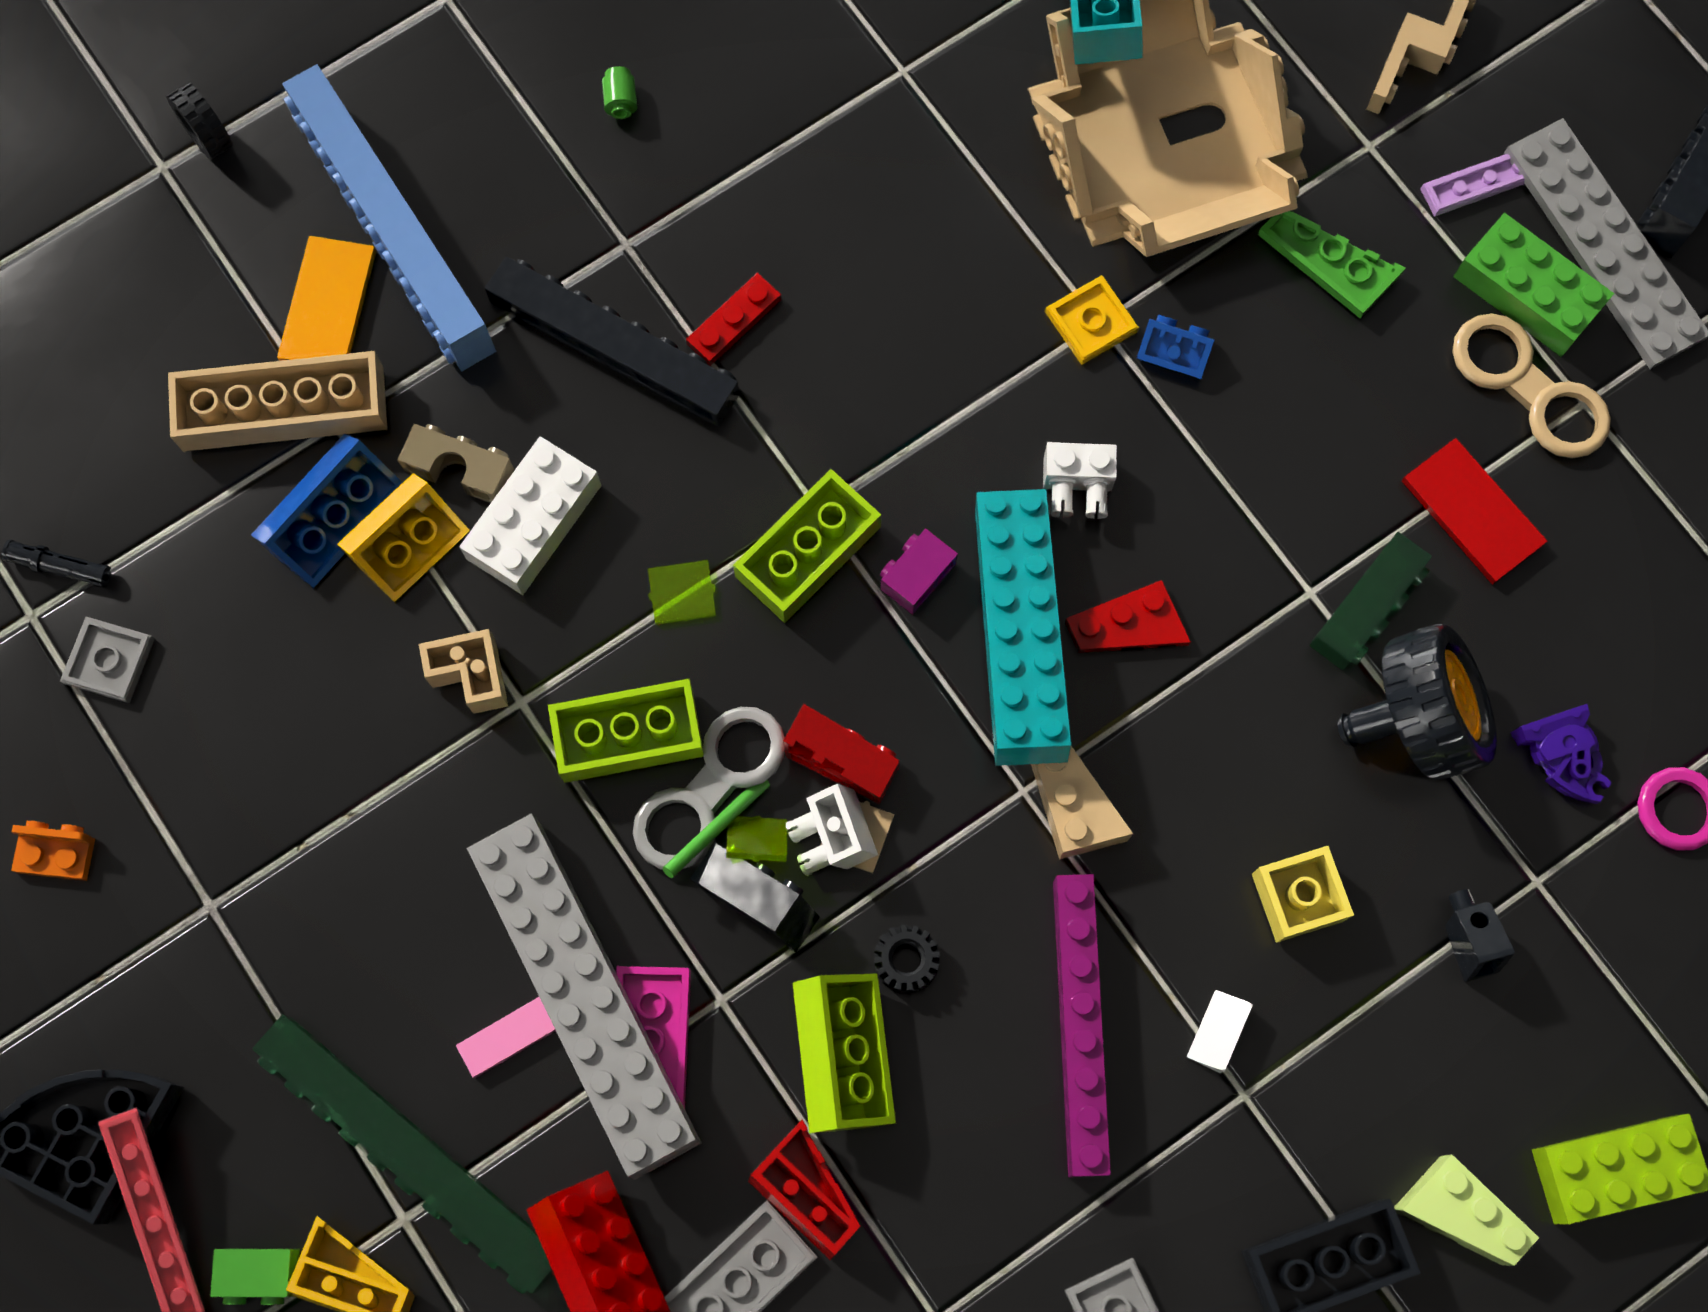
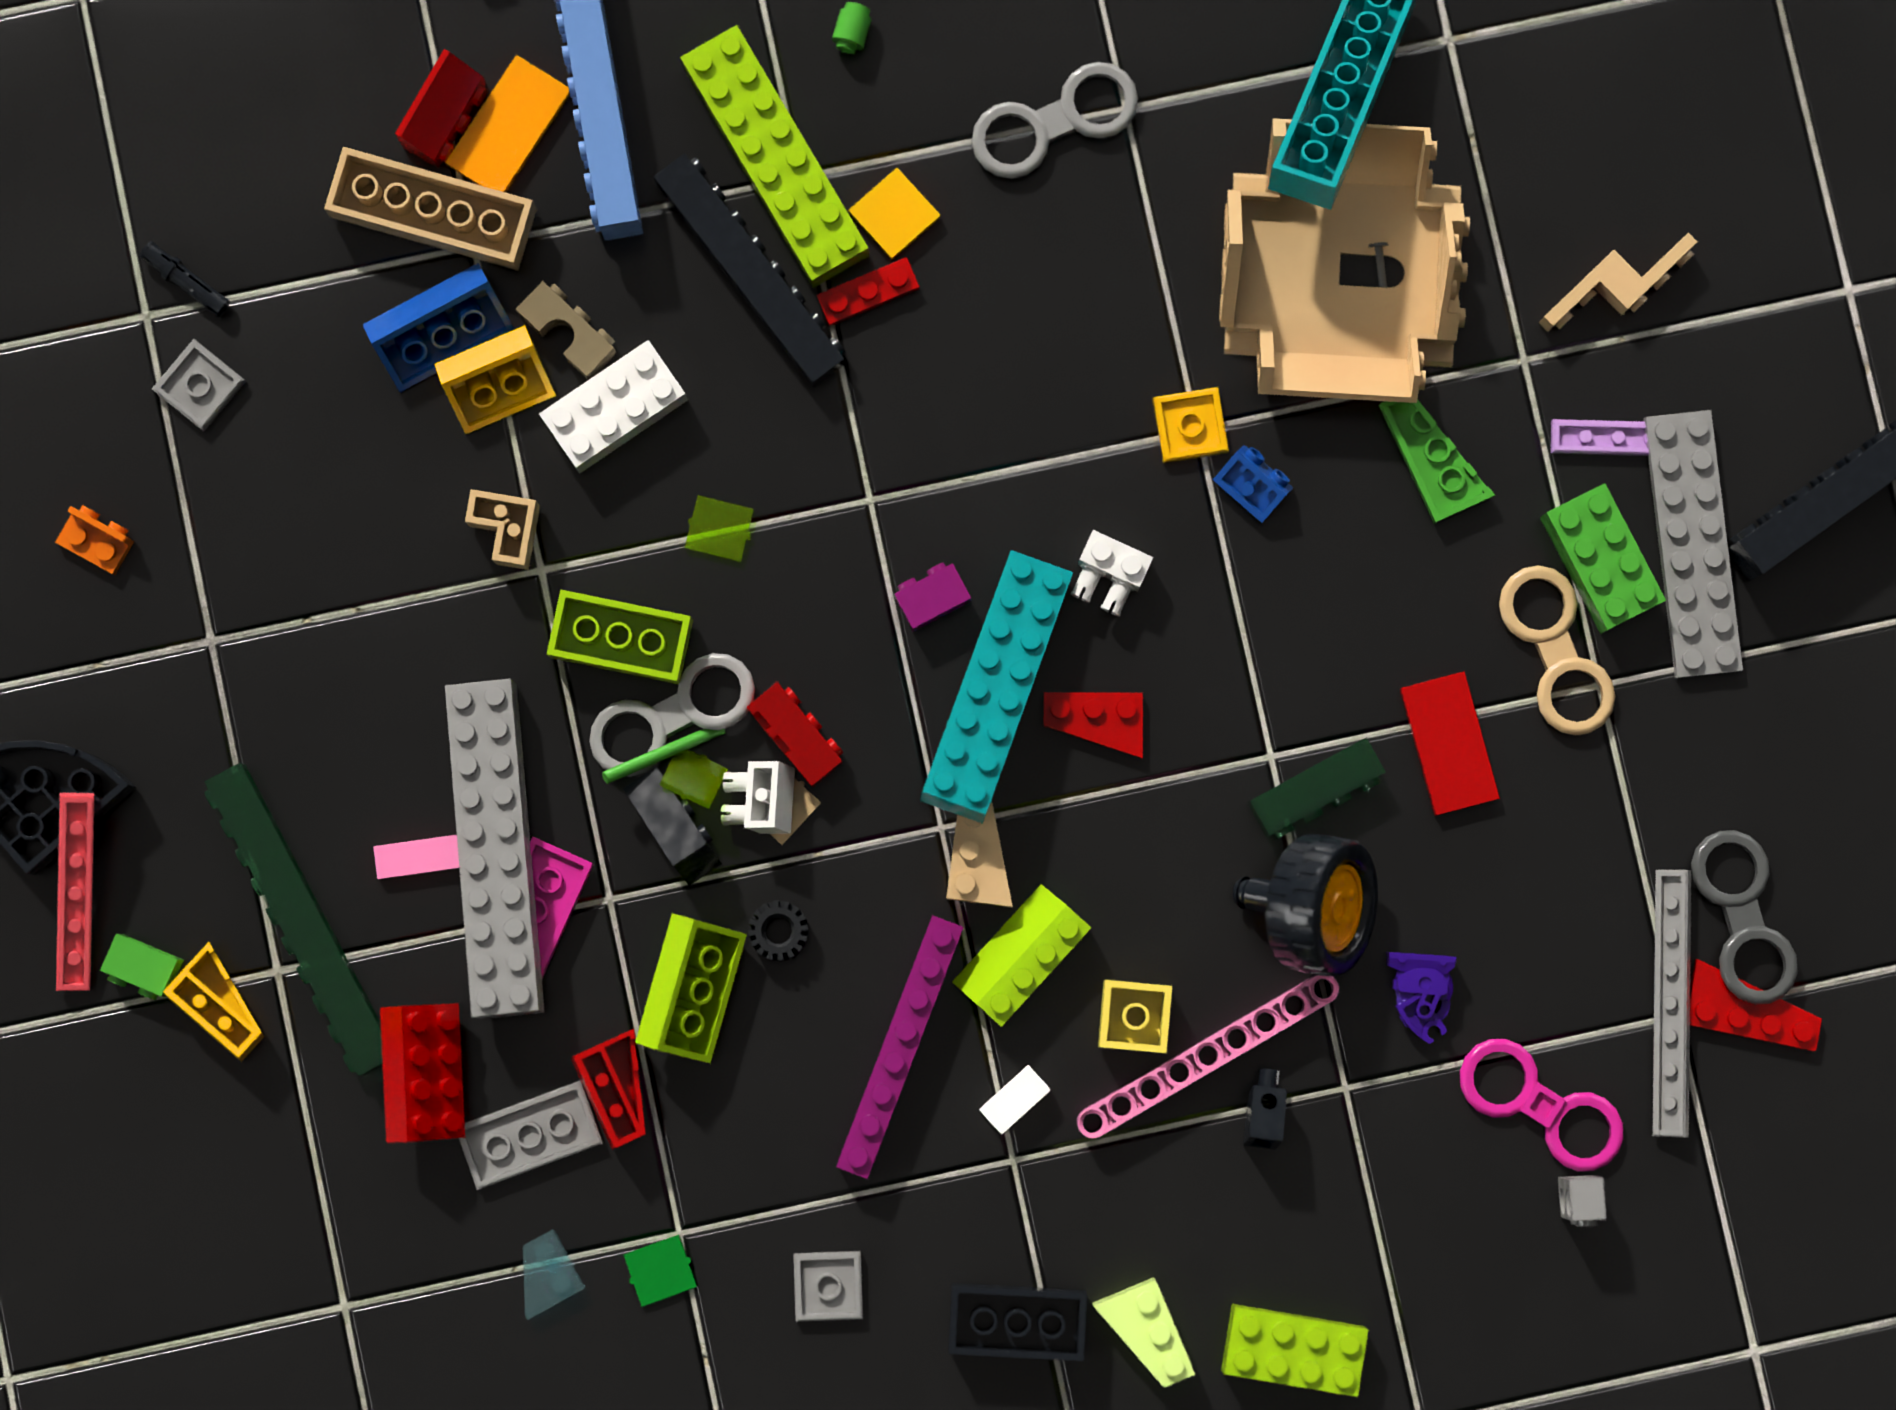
camera: 20 degrees right, 10 degrees up
(253, 306) = (441, 109): none -> red slope
(594, 230) = (774, 156): none -> lime brick
(729, 240) = (894, 213): none -> yellow tile
(807, 545) = (844, 535): lime brick -> none
(843, 103) = (1055, 120): none -> light grey bar
(1161, 882) = (1021, 955): none -> lime slope
(1197, 111) = (1380, 263): none -> dark grey pin
(1402, 892) = (1223, 1050): none -> bright pink beam

